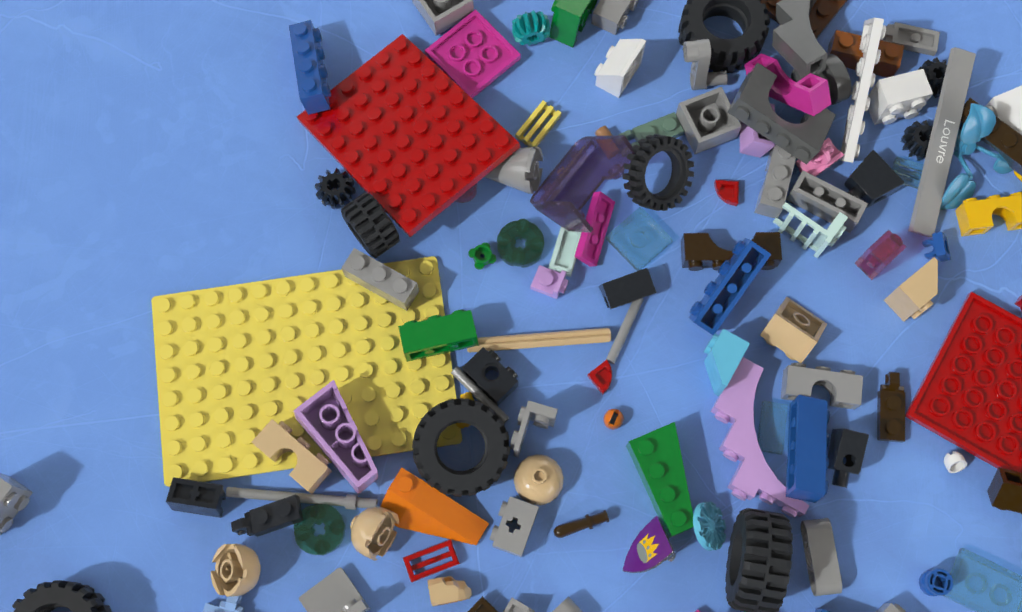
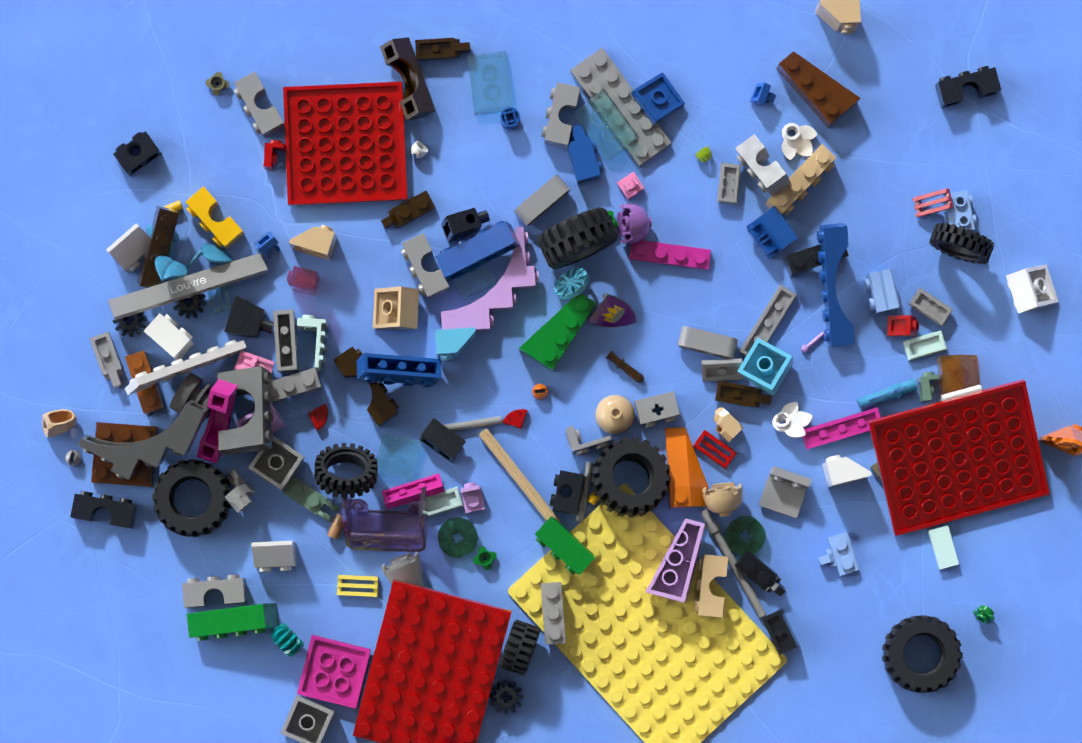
camera: 130 degrees left, 10 degrees up
(235, 570) = (808, 569): tan cylinder -> none

